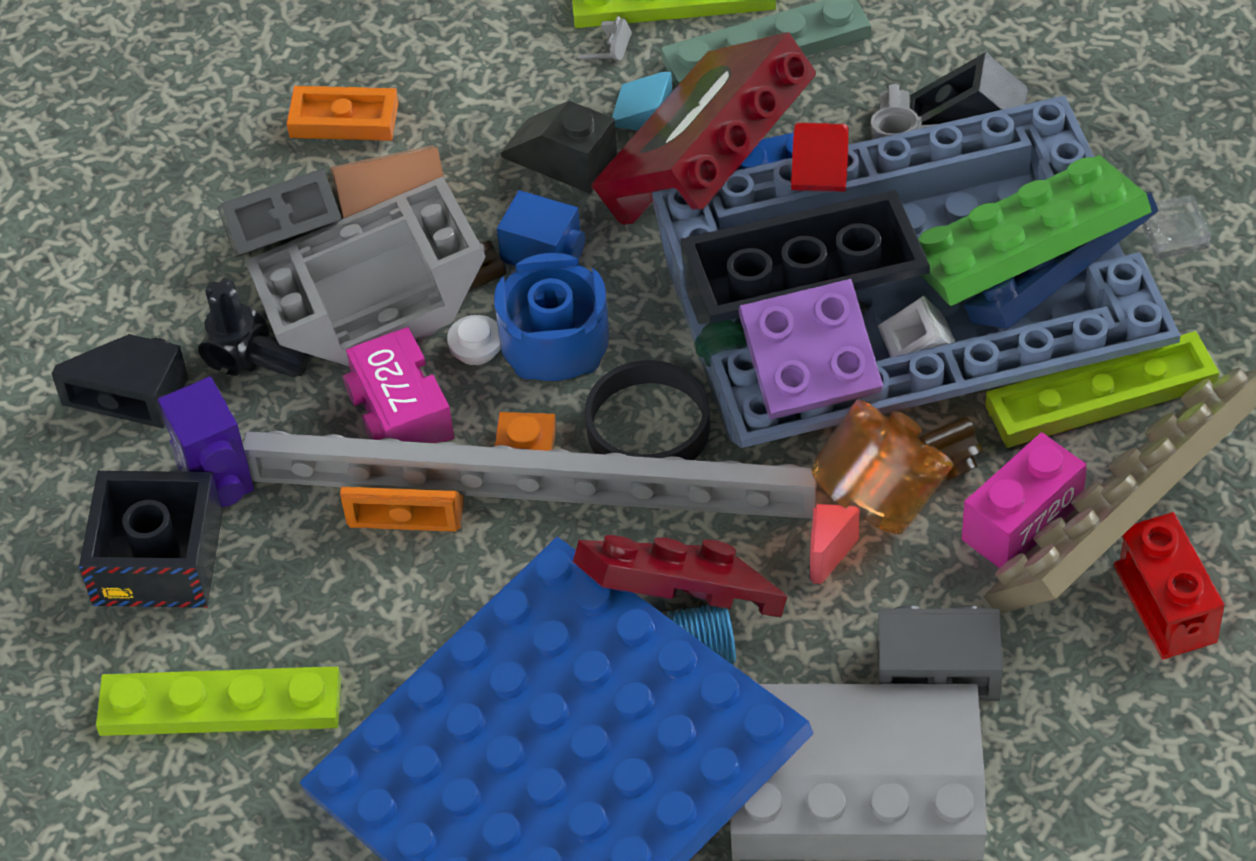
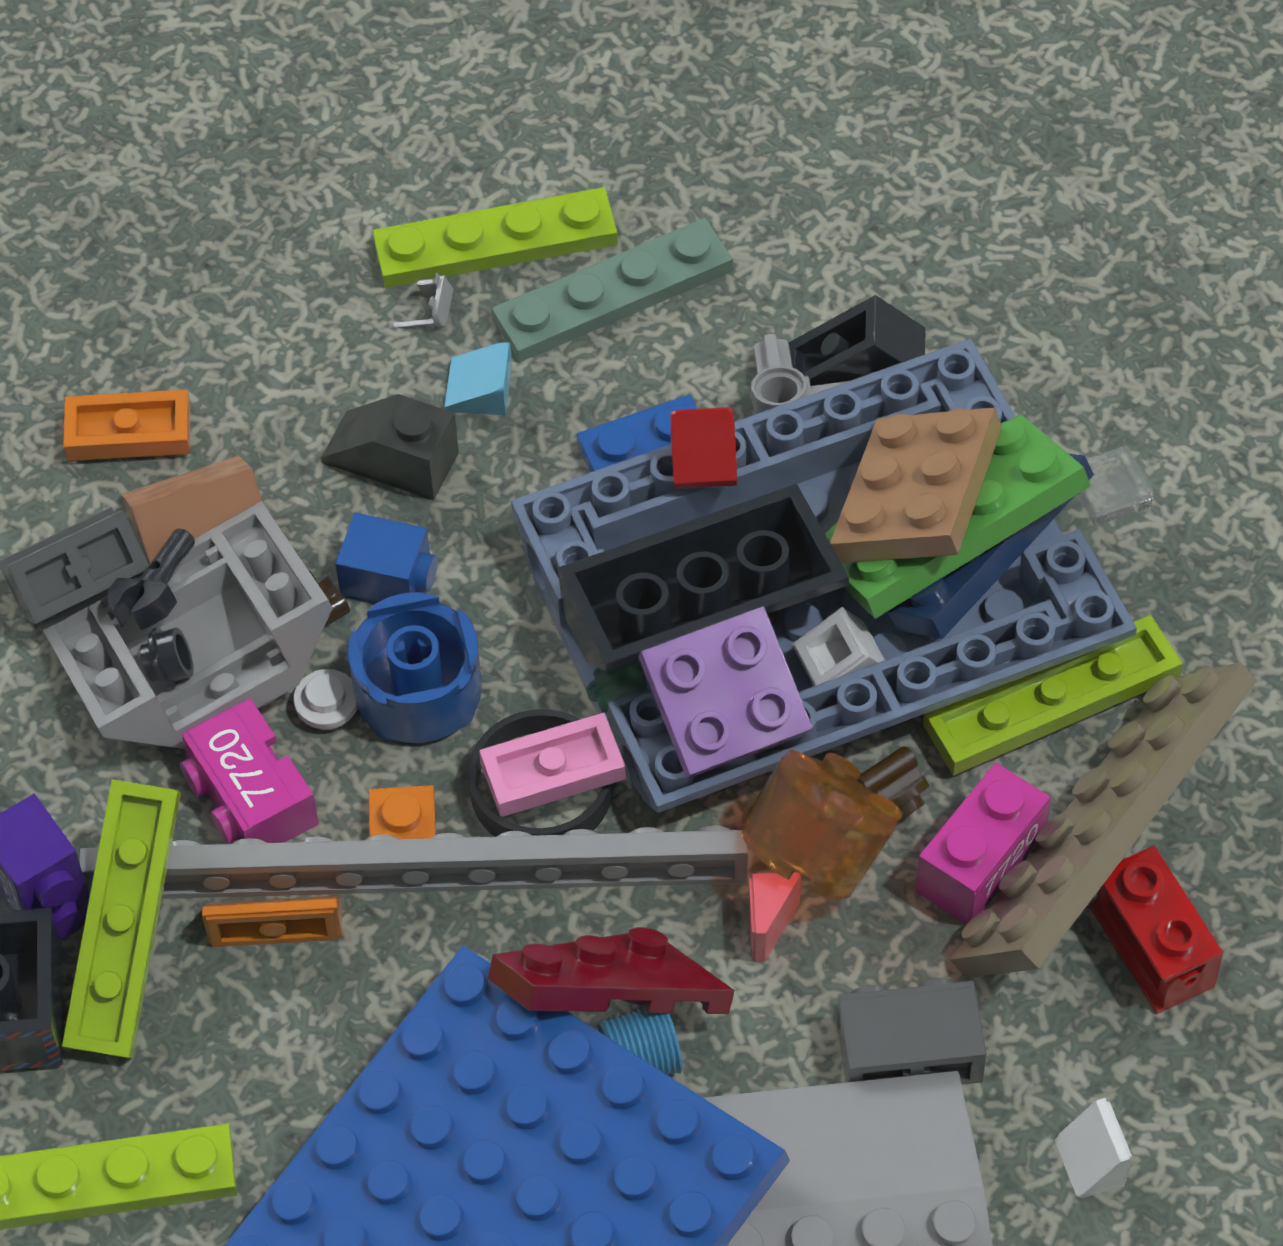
camera: 10 degrees left, 5 degrees up
(240, 337) = (52, 728): black axle -> none
(271, 489) = (121, 919): none -> lime plate
(338, 240) = (150, 596): none -> black bar
(344, 290) = (167, 657): none -> black plate
(656, 401) = (552, 764): none -> bright pink plate
(706, 125) = (562, 413): dark red panel -> none
(1000, 200) = (916, 485): none -> medium nougat plate
(1091, 764) = (1095, 1151): none -> white slope

